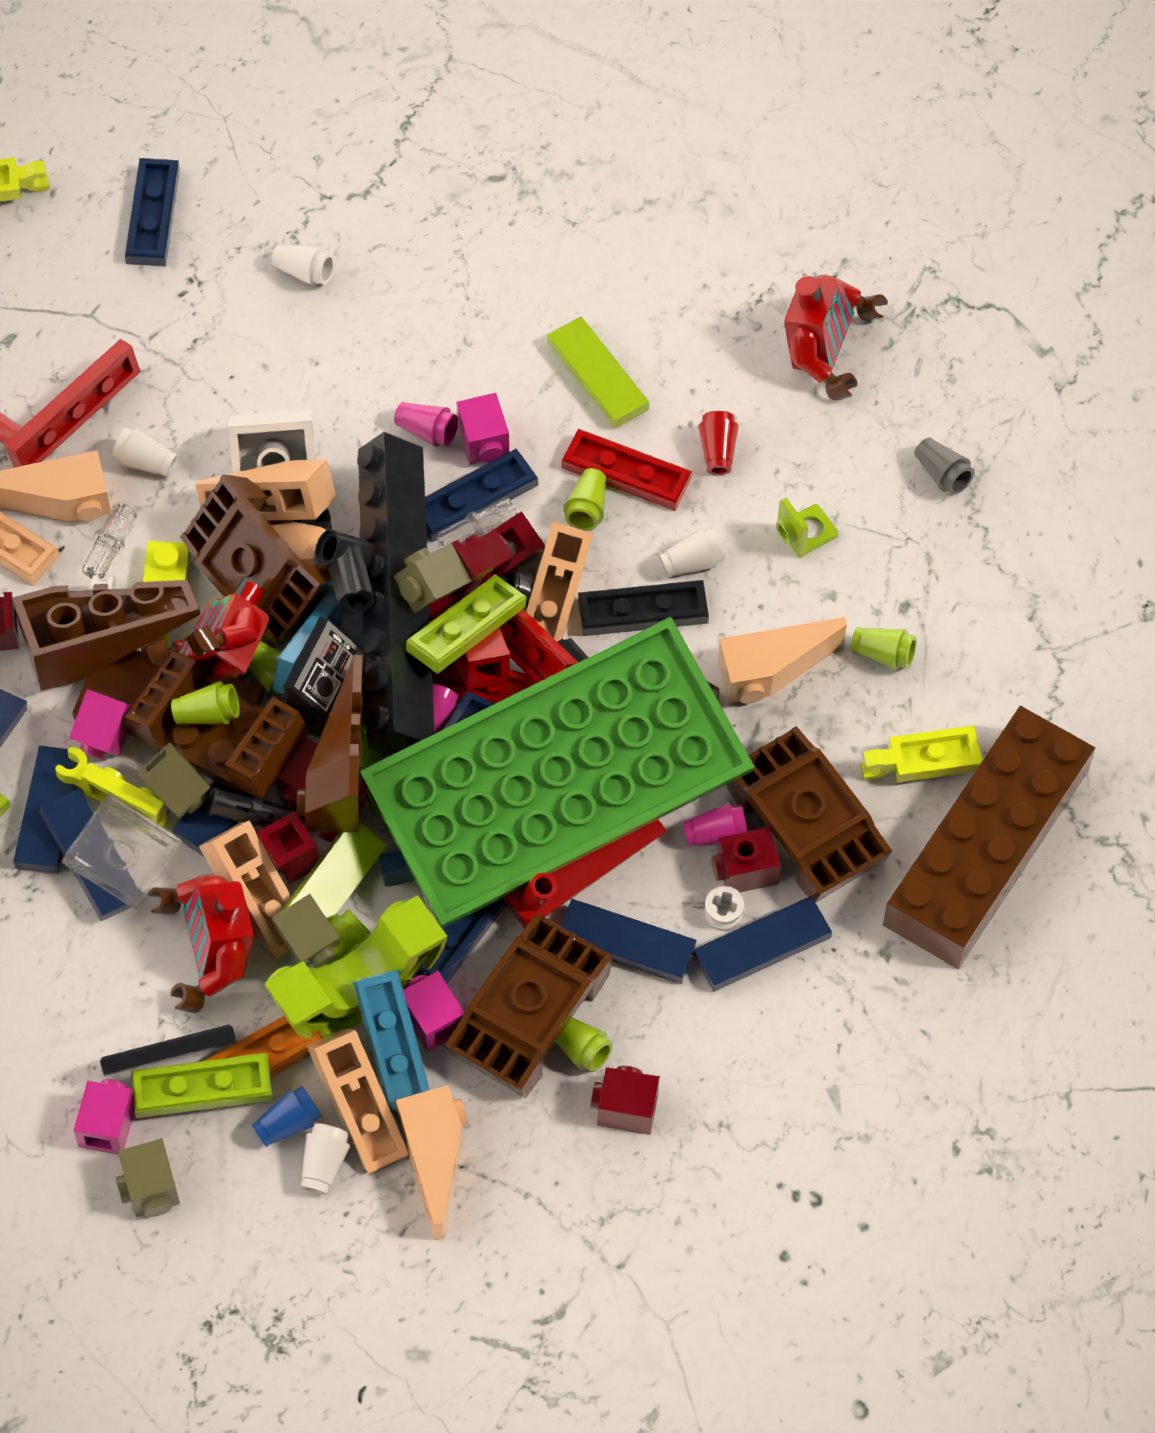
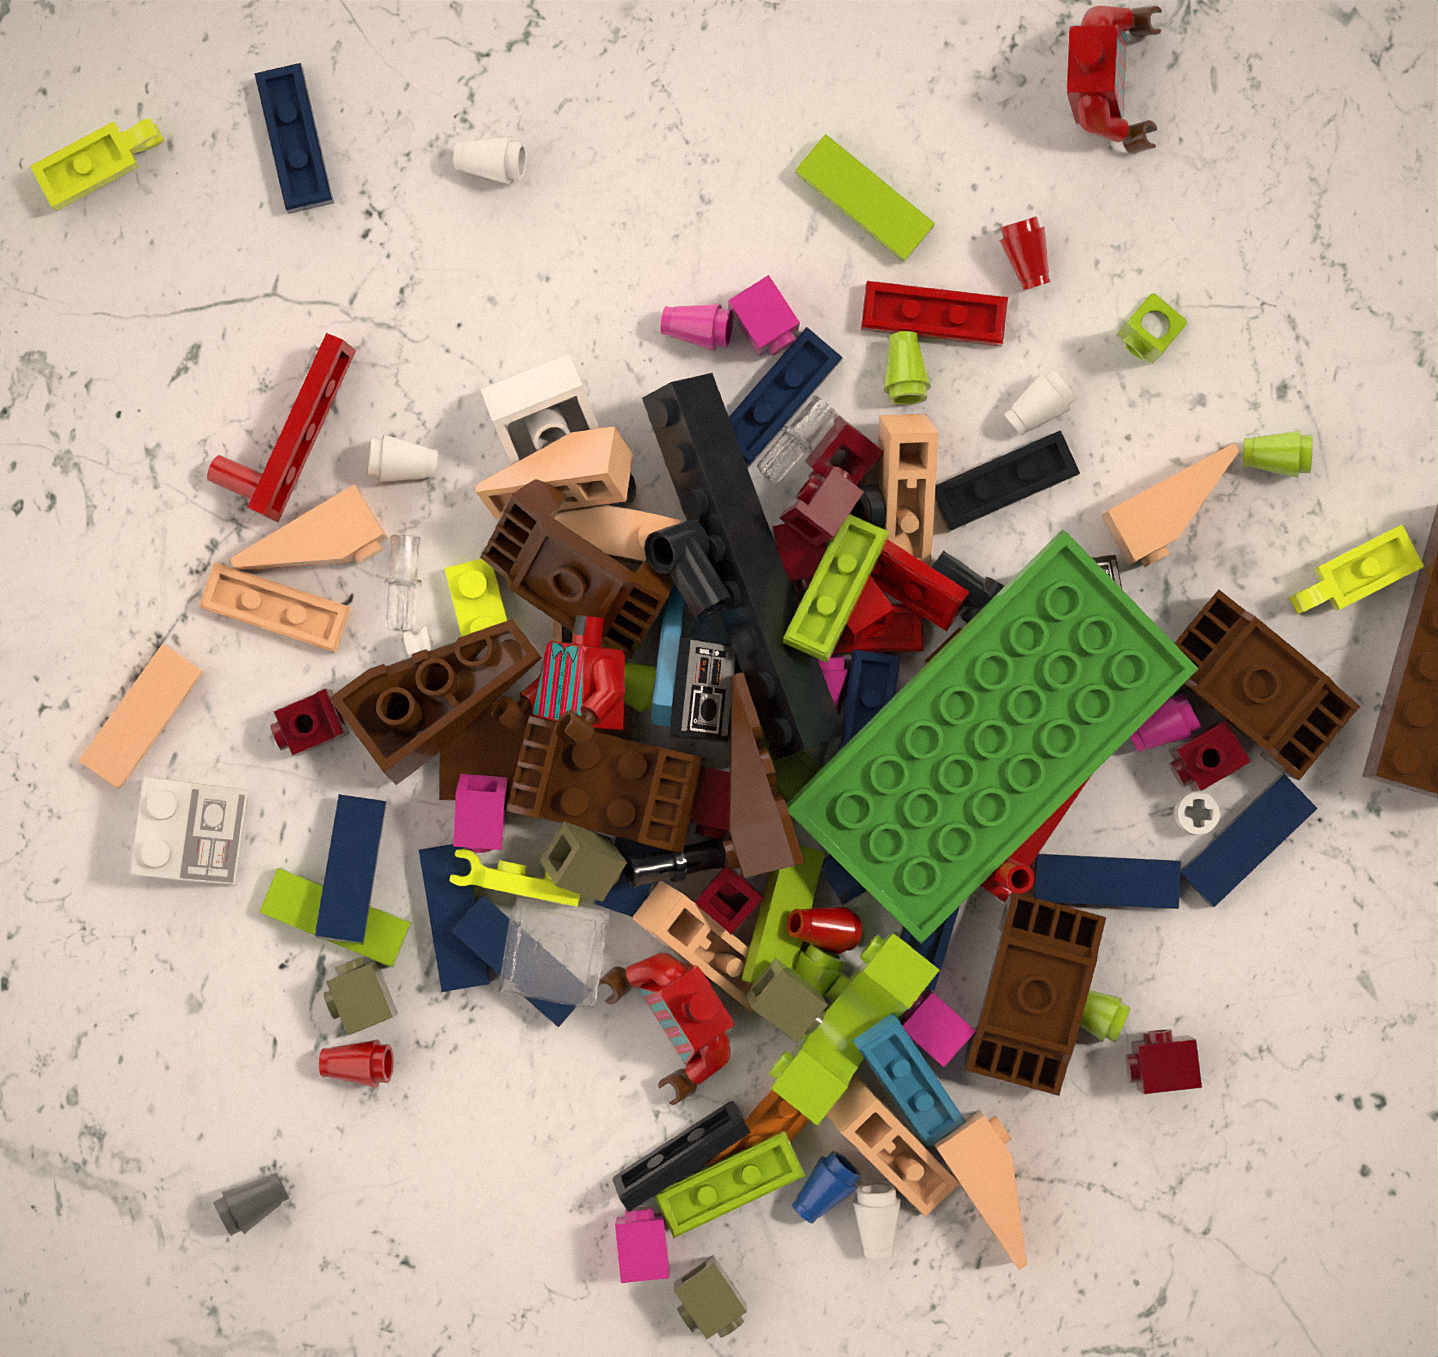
camera: 20 degrees left, 25 degrees up
(207, 705) = (591, 772): lime cone -> none
(361, 897) = (828, 927): none -> red cone
(431, 577) = (784, 549): olive brick -> none
(946, 467) = (1282, 206): dark grey cone -> none

